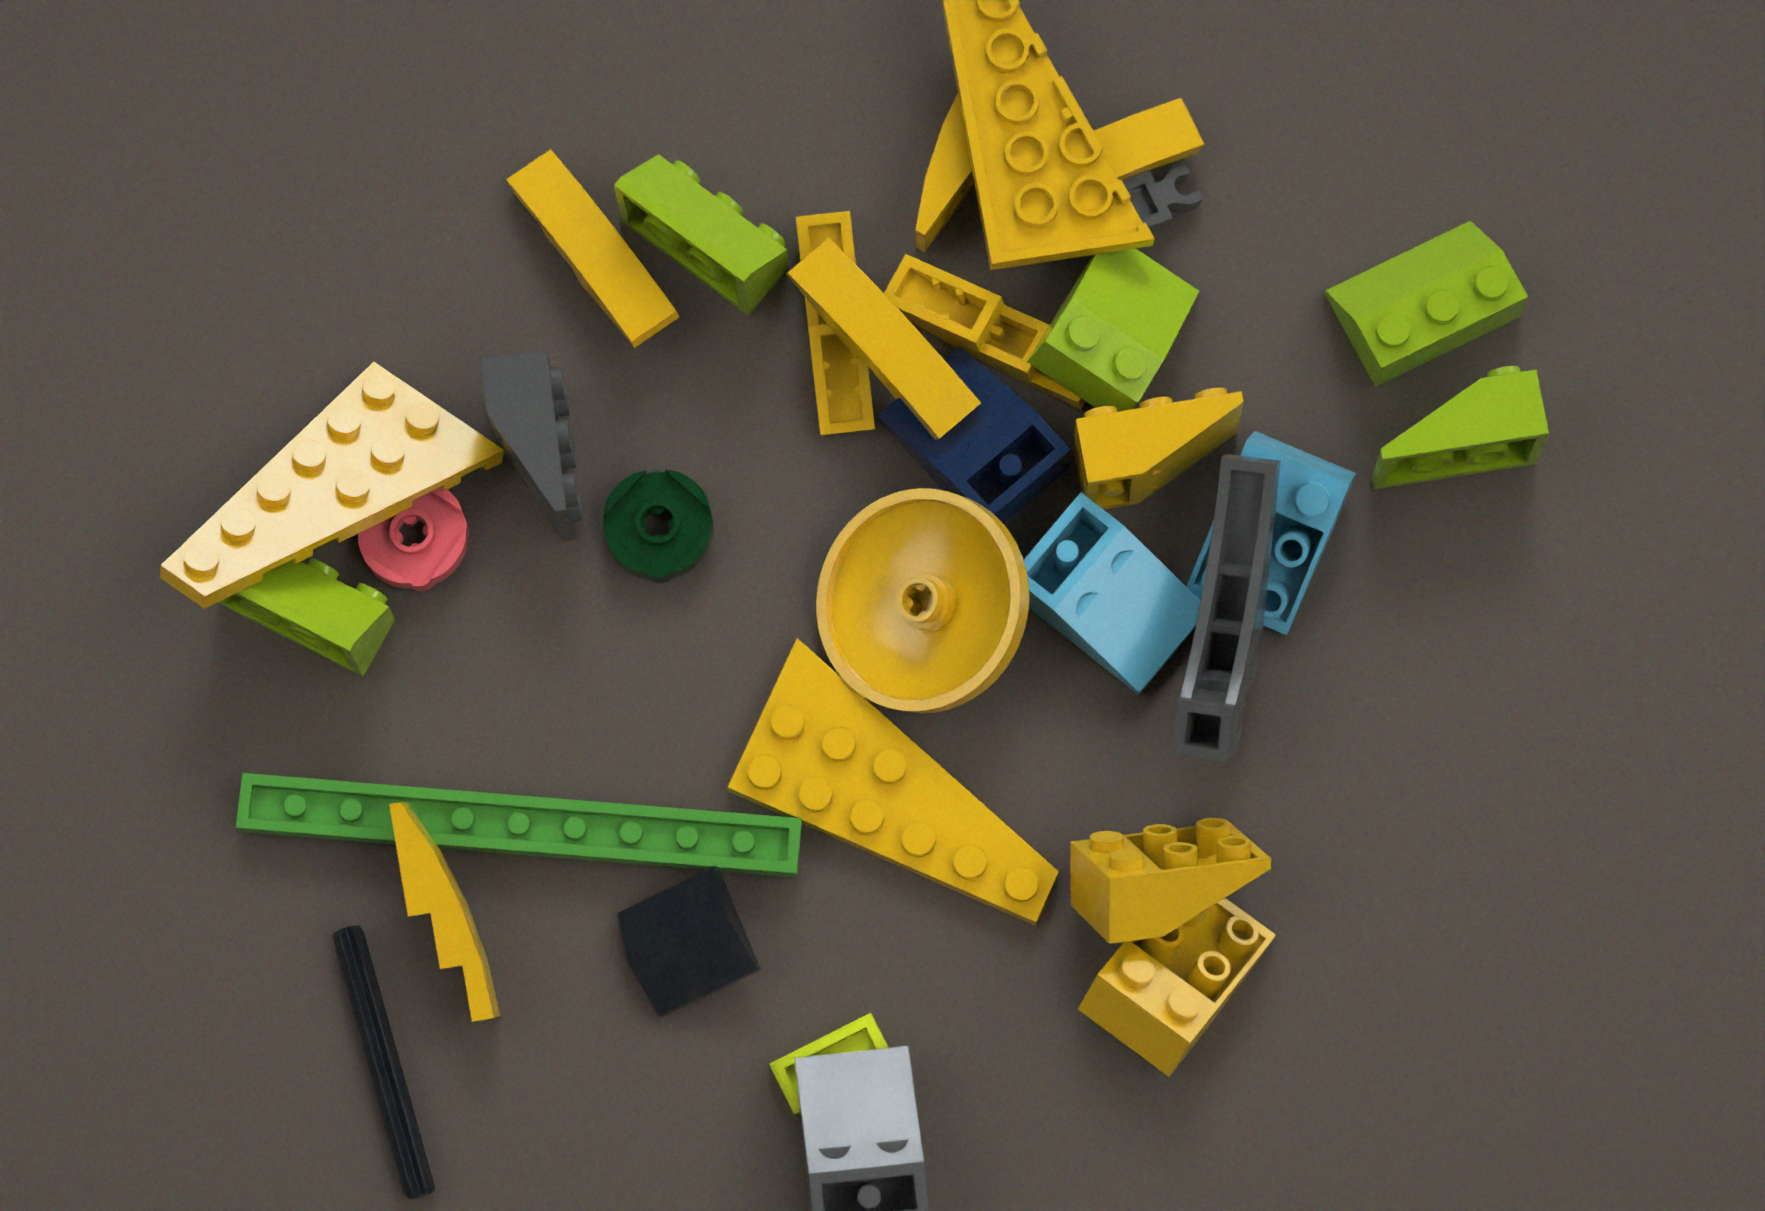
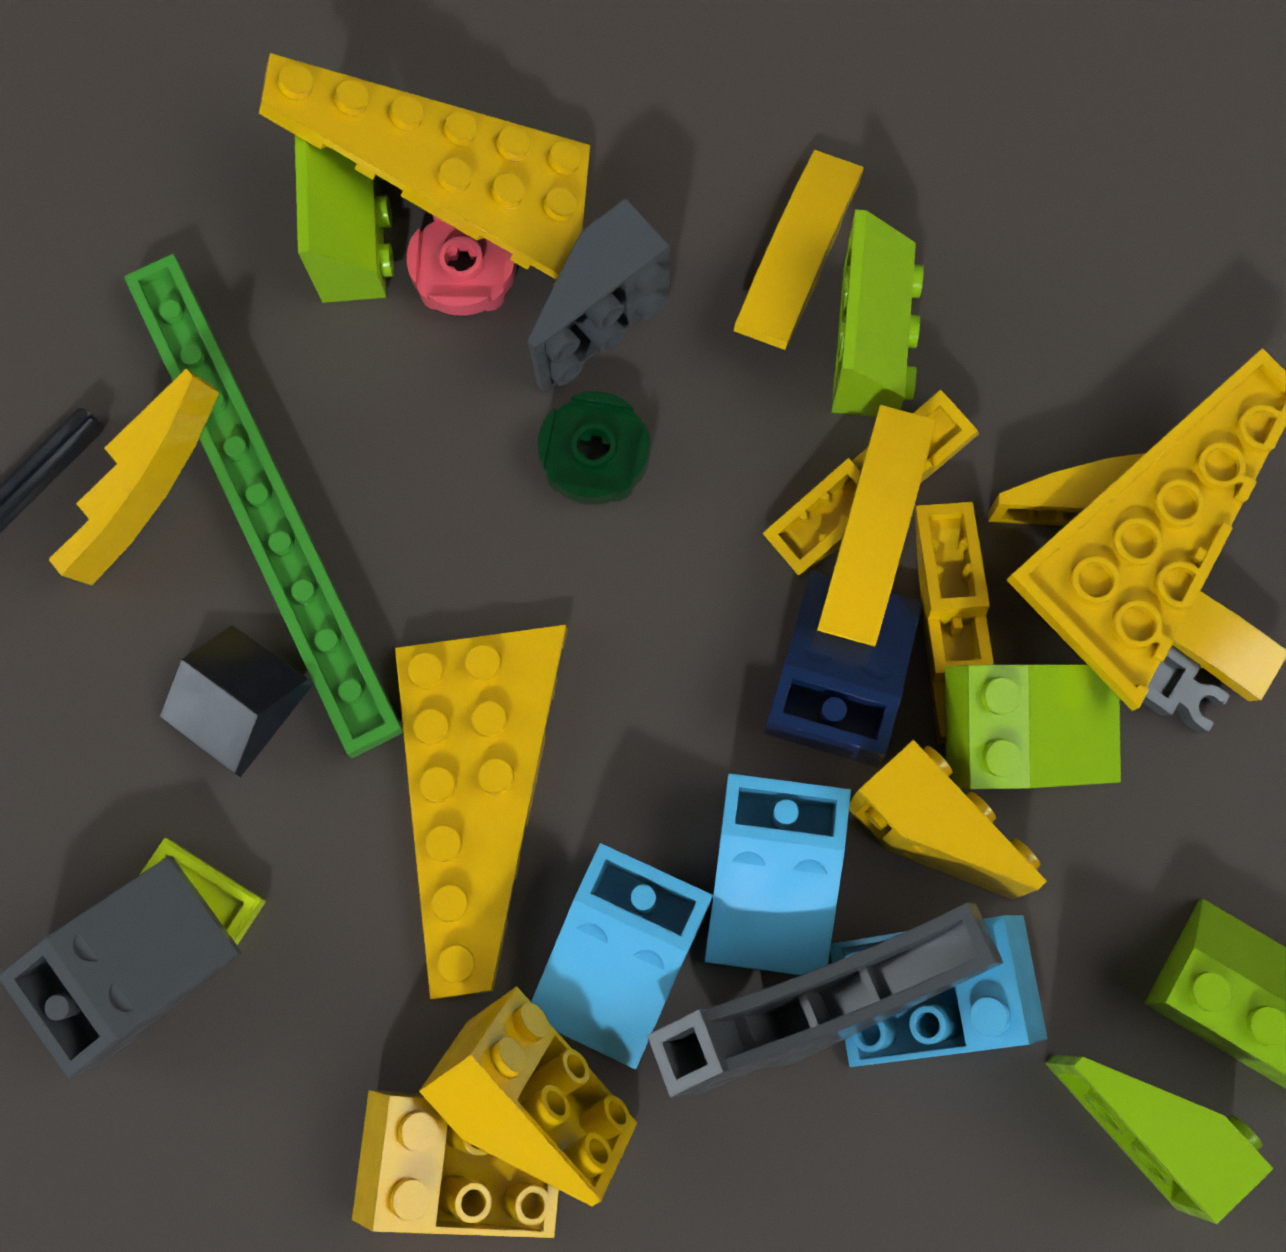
camera: 60 degrees right, 0 degrees up
(922, 600) = (661, 712): yellow dish -> none
(1093, 748) = (619, 954): none -> medium azure slope

